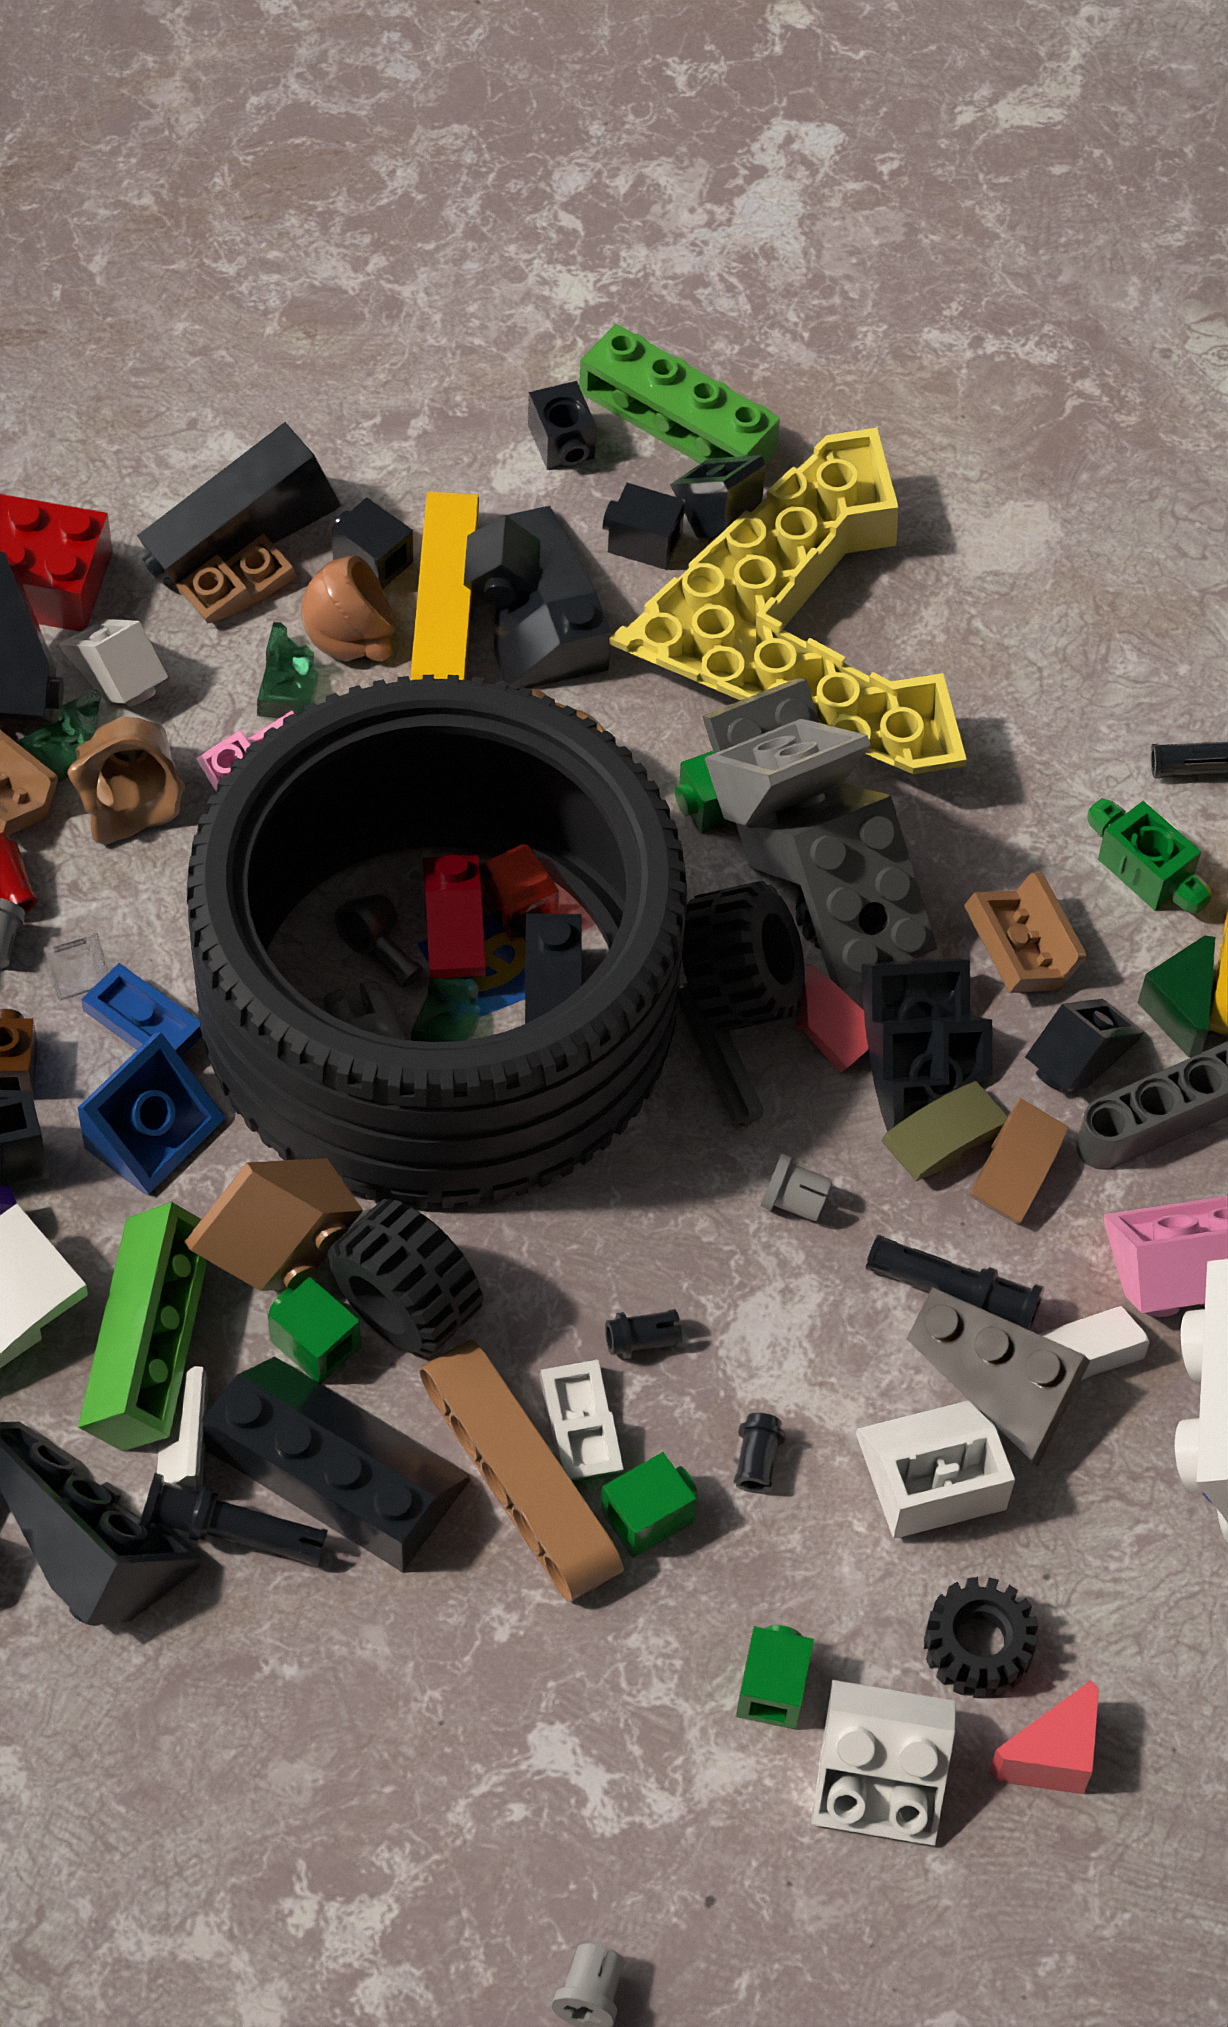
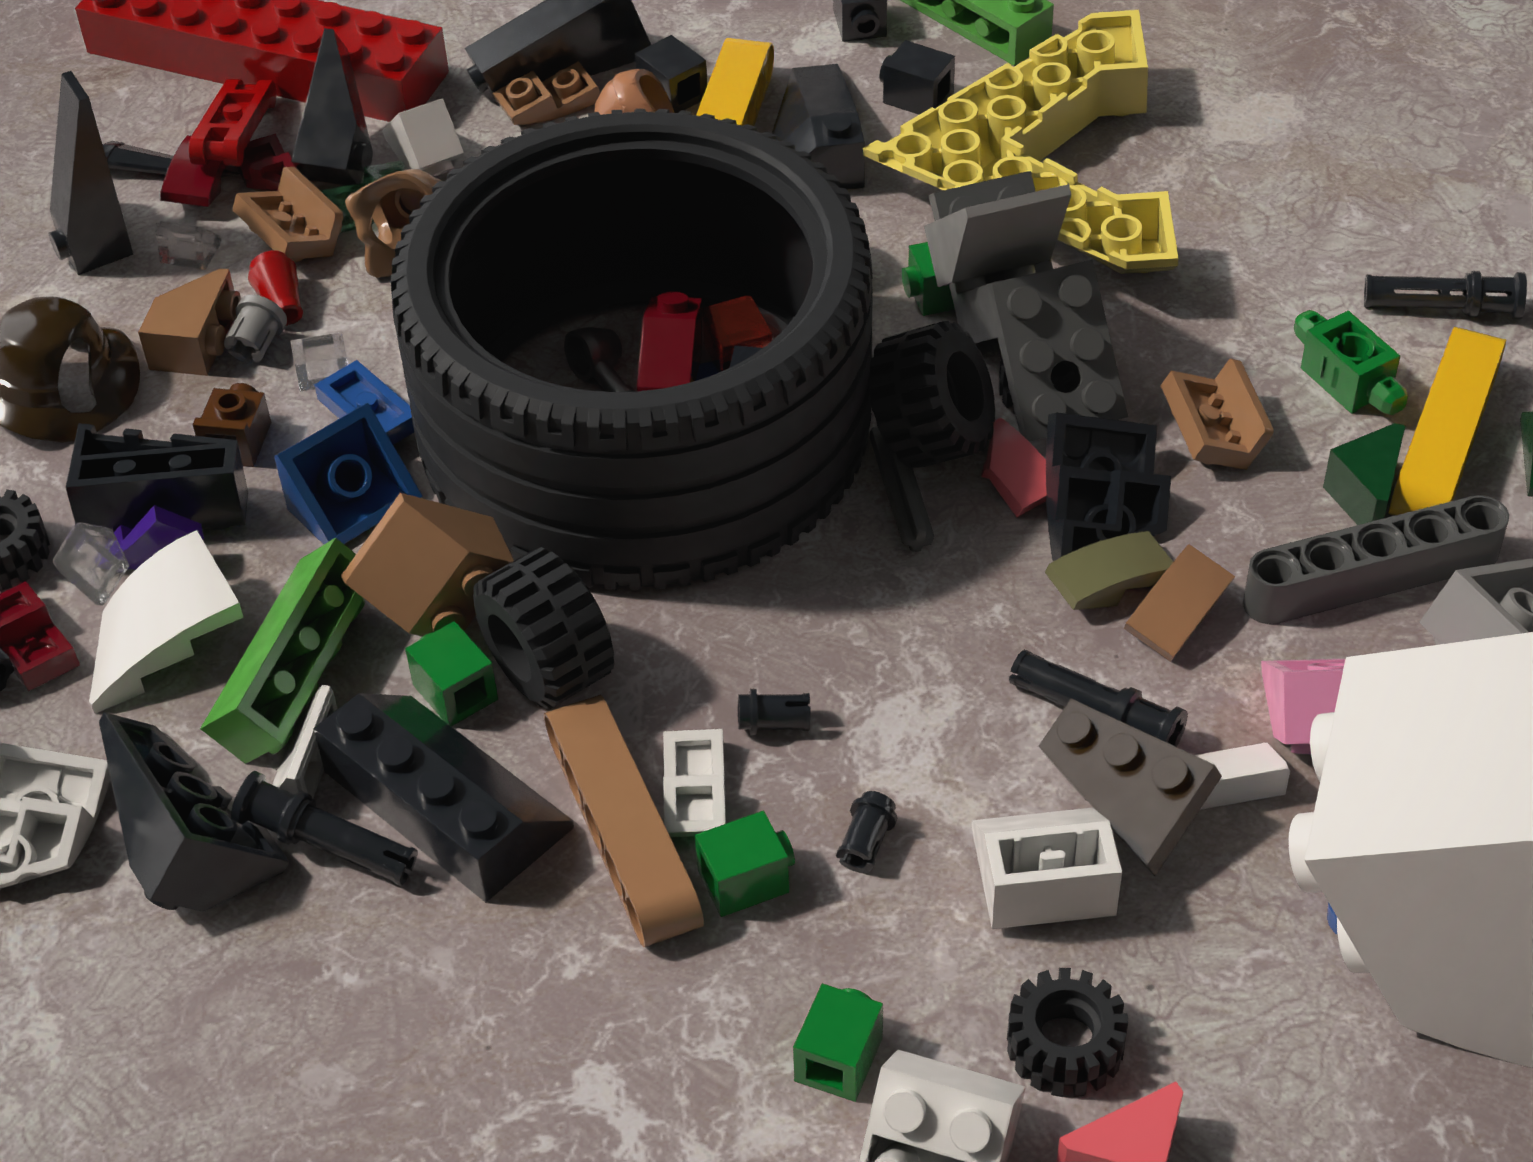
camera: 15 degrees right, 10 degrees down
(502, 562) = (779, 87): black brick -> none
(720, 492) = (990, 48): black slope -> none
(796, 1190) = (950, 603): light grey bush -> none
(1081, 1044) = (1258, 508): black slope -> none

